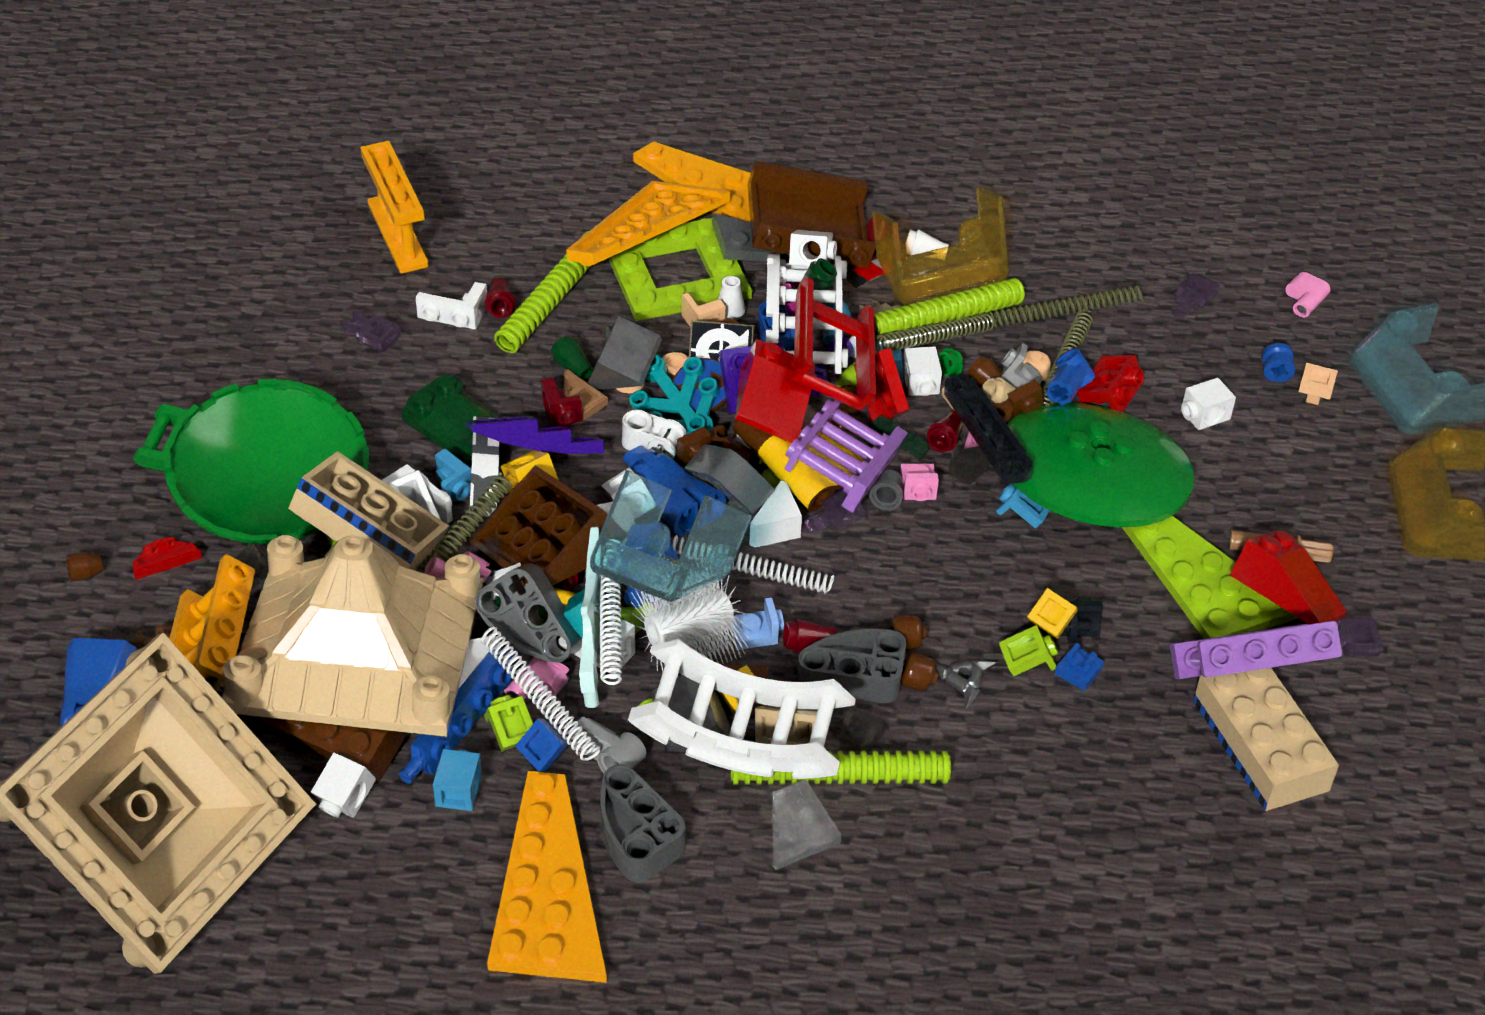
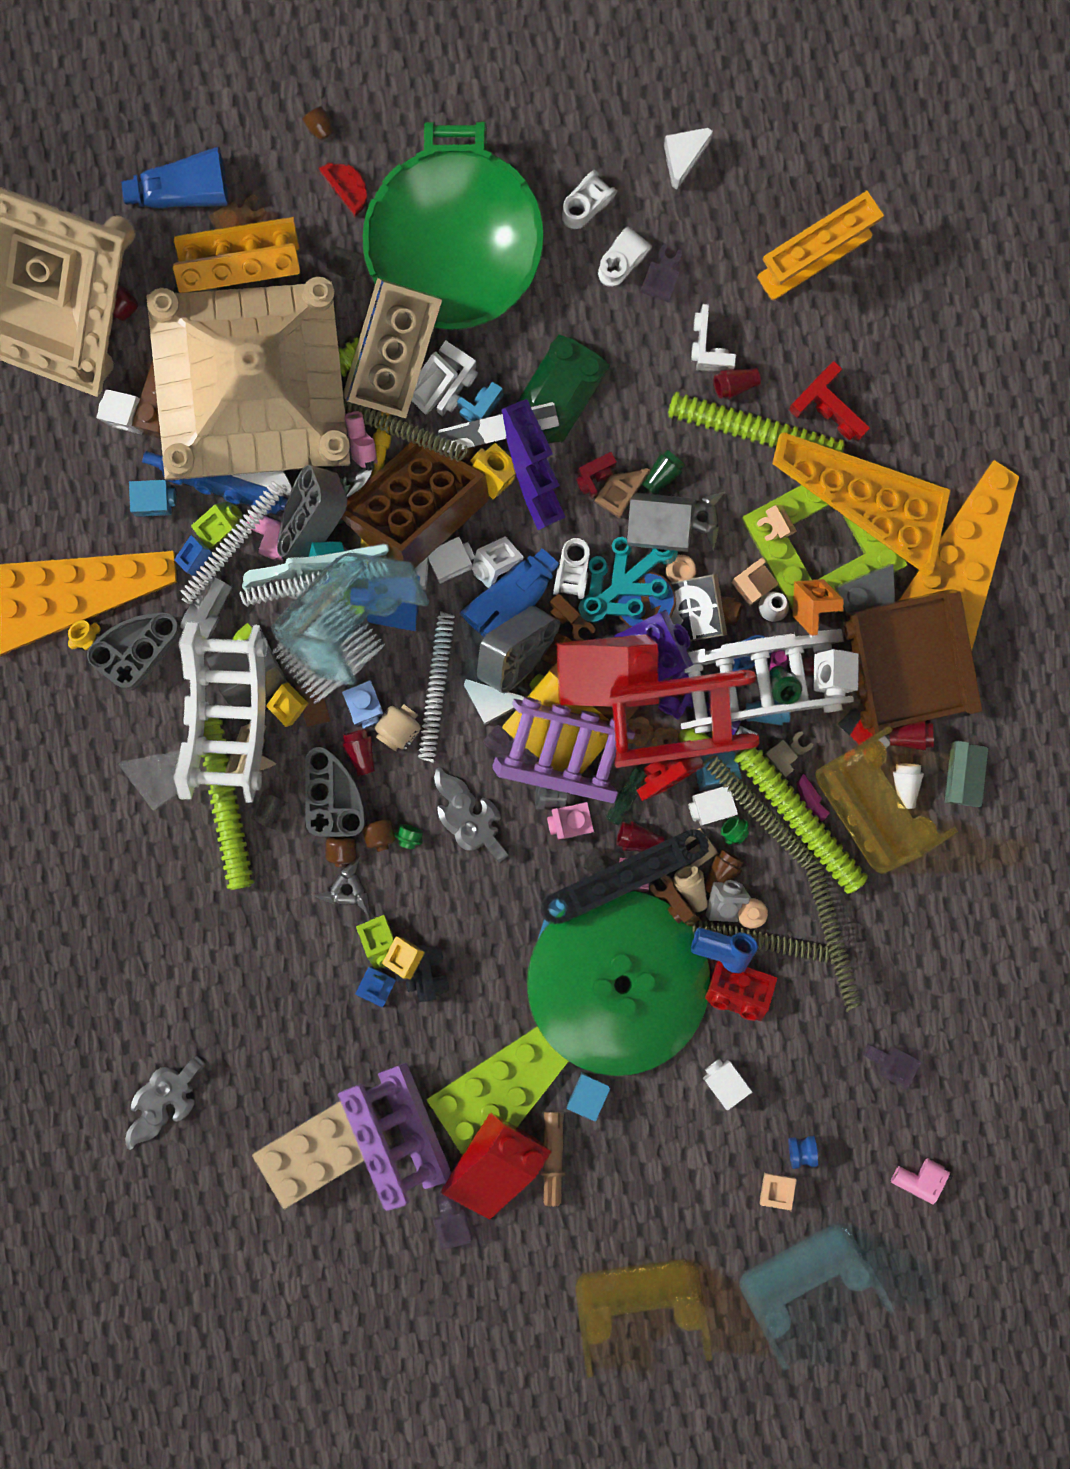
camera: 80 degrees right, 40 degrees up
(259, 297) = (683, 152): none -> white slope
(269, 364) = (590, 196): none -> white piece
(341, 354) = (625, 254): none -> white piece
(538, 242) = (830, 405): none -> red bracket
(598, 872) = (82, 634): none -> yellow plate
(651, 276) = (780, 522): none -> light nougat tile
(742, 256) = (811, 599): none -> orange panel
(790, 596) = (397, 727): none -> tan head
(912, 559) = (469, 829): none -> flat silver piece
(914, 606) = (409, 836): none -> green plate
(921, 213) = (966, 774): none -> sand green panel
(1187, 884) = (164, 1088): none -> flat silver piece
(1215, 506) = (588, 1097): none -> dark azure panel

